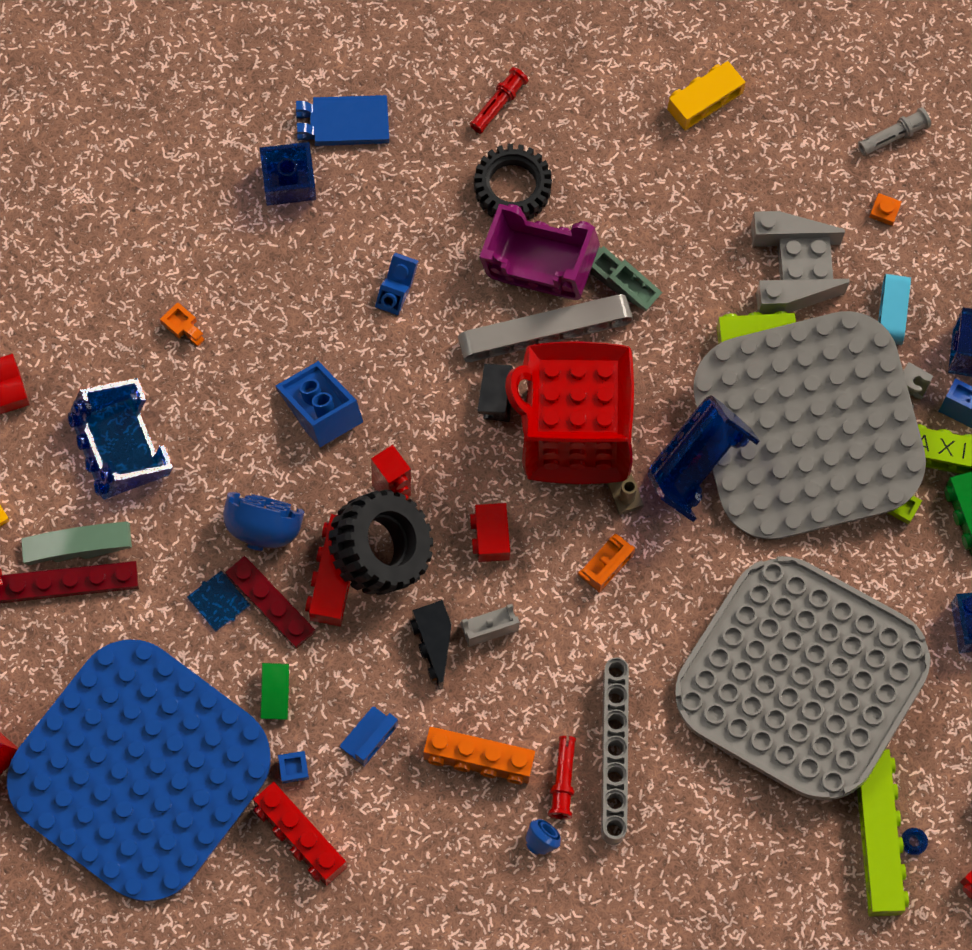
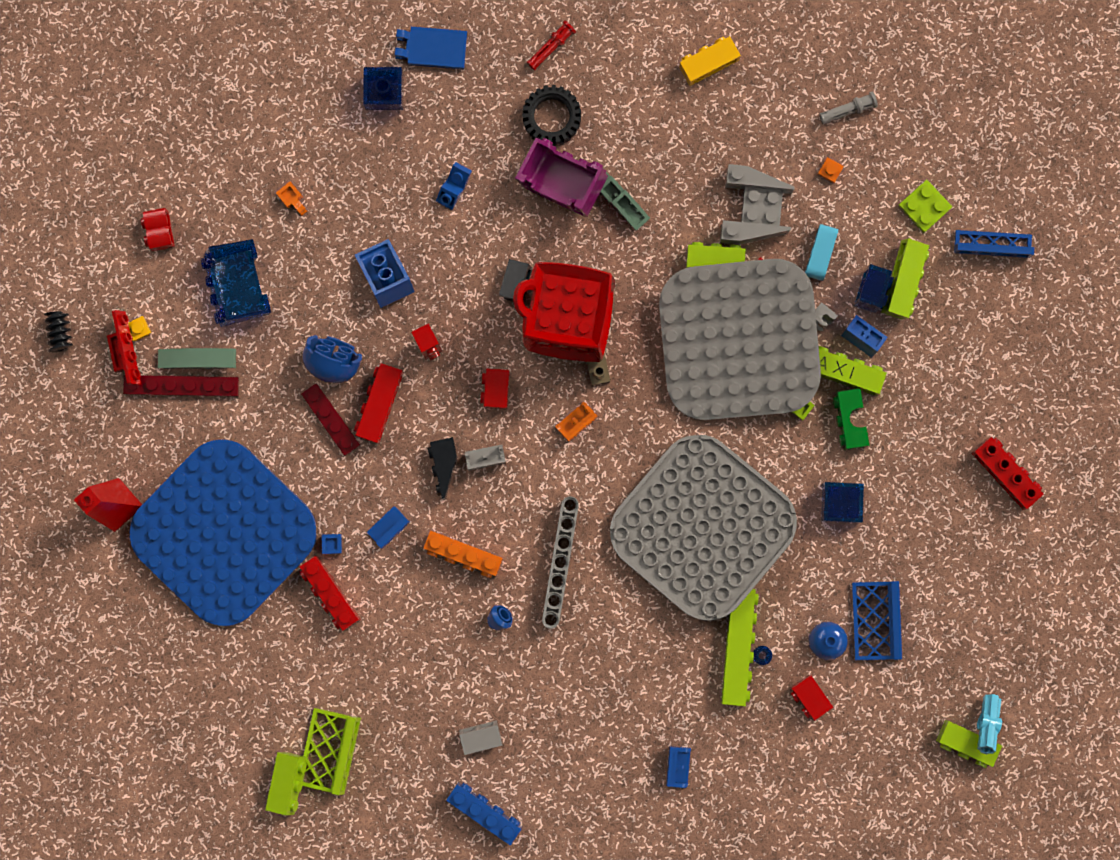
camera: 15 degrees right, 15 degrees up
(218, 601) = (294, 413): clear blue piece -> none
(274, 691) = (325, 487): green slope -> none
(409, 539) = (435, 391): black tyre -> none
(545, 328) = (559, 235): light grey beam -> none
(562, 789) = (518, 586): red pin -> none
(696, 452) = (650, 351): clear blue windscreen -> none

